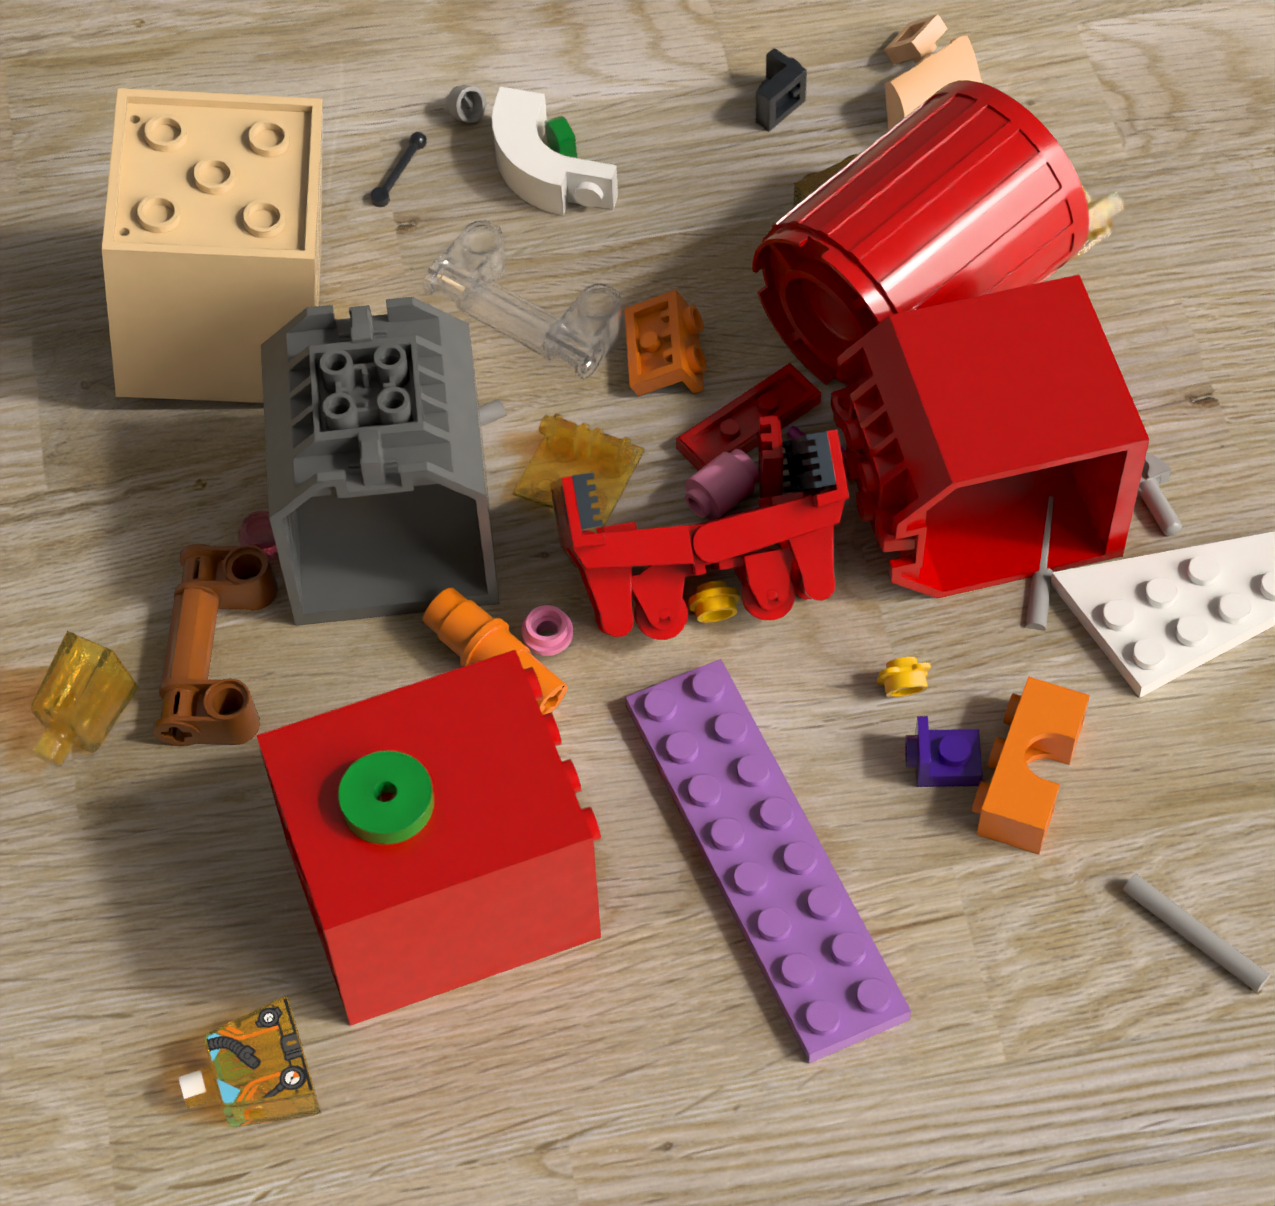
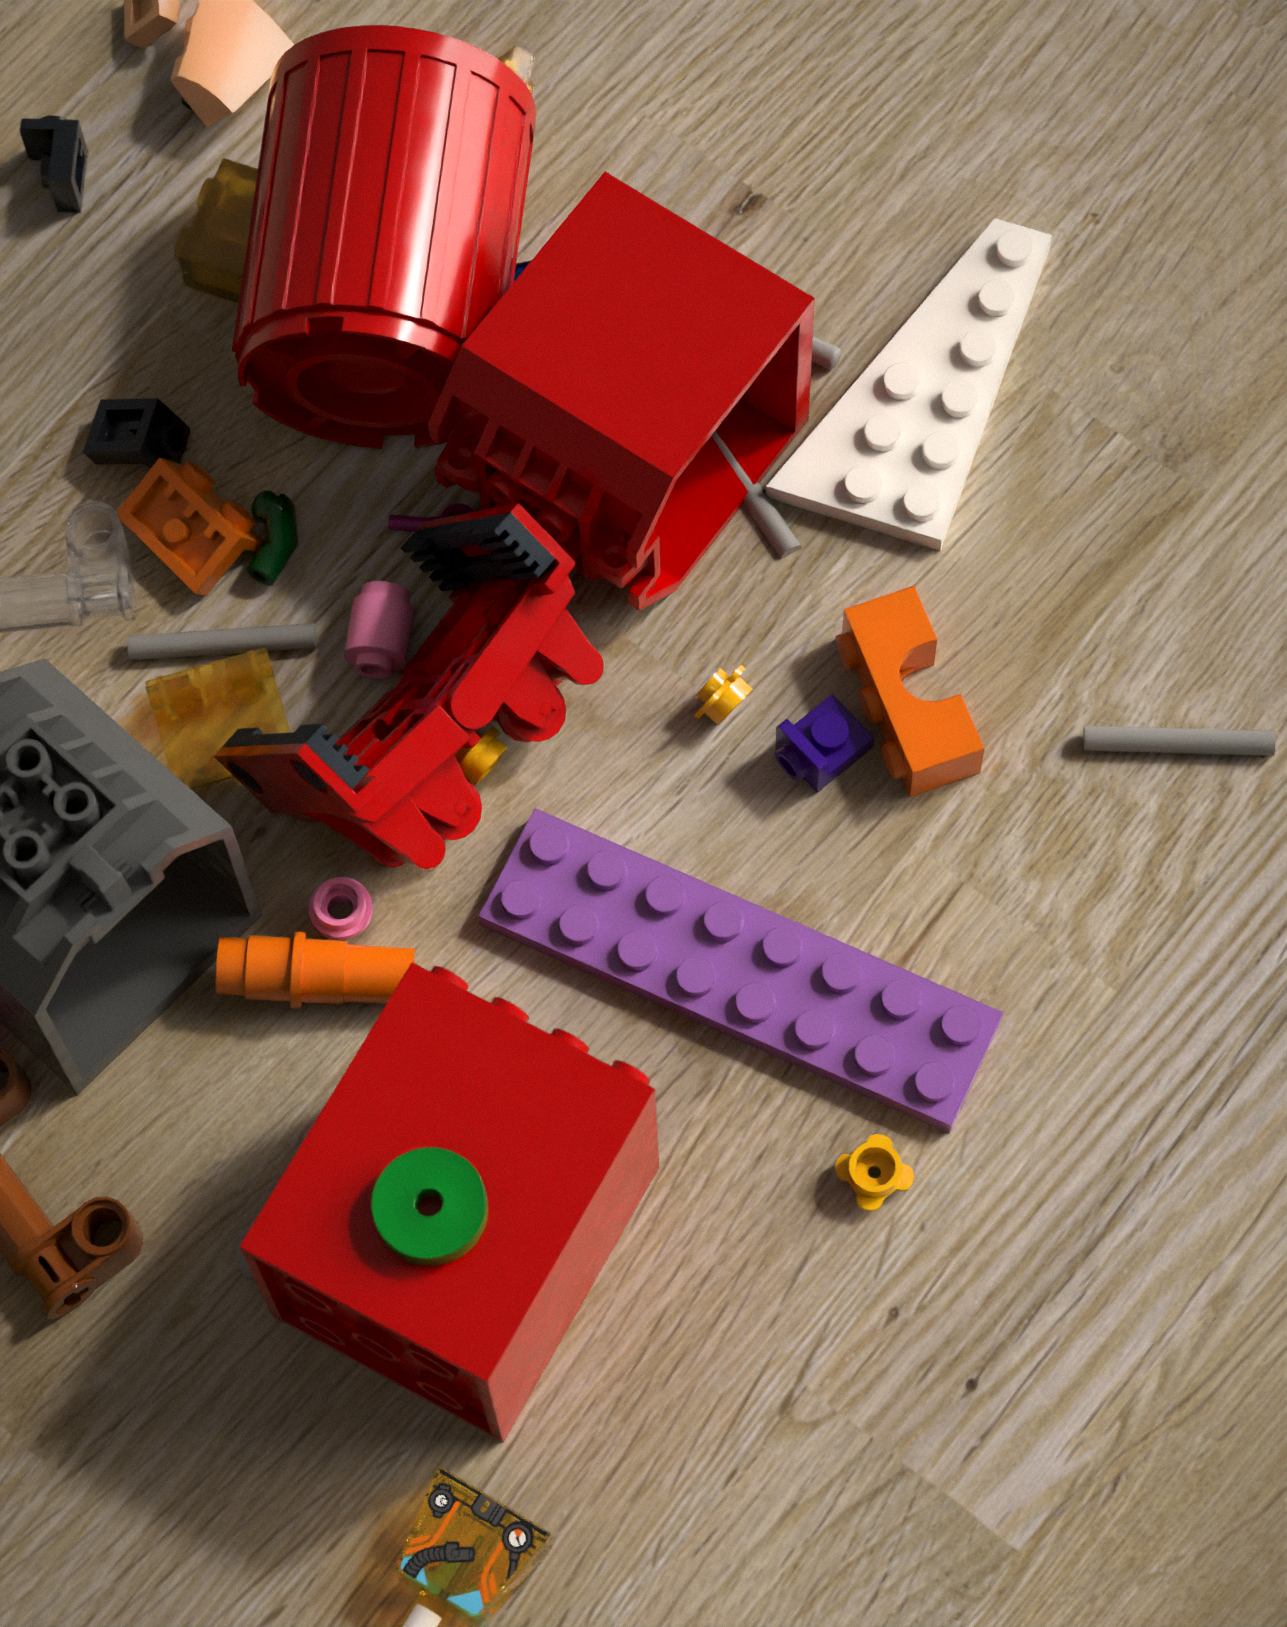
camera: 40 degrees left, 10 degrees up
(622, 427) = (221, 641): none -> light grey bar
(681, 269) = (135, 433): none -> black bracket
(715, 388) = (281, 536): none -> dark green arm
(736, 425) = (340, 541): red tile -> none
(736, 1030) = (876, 1153): none -> yellow plate
(770, 457) = (426, 583): red tile -> none

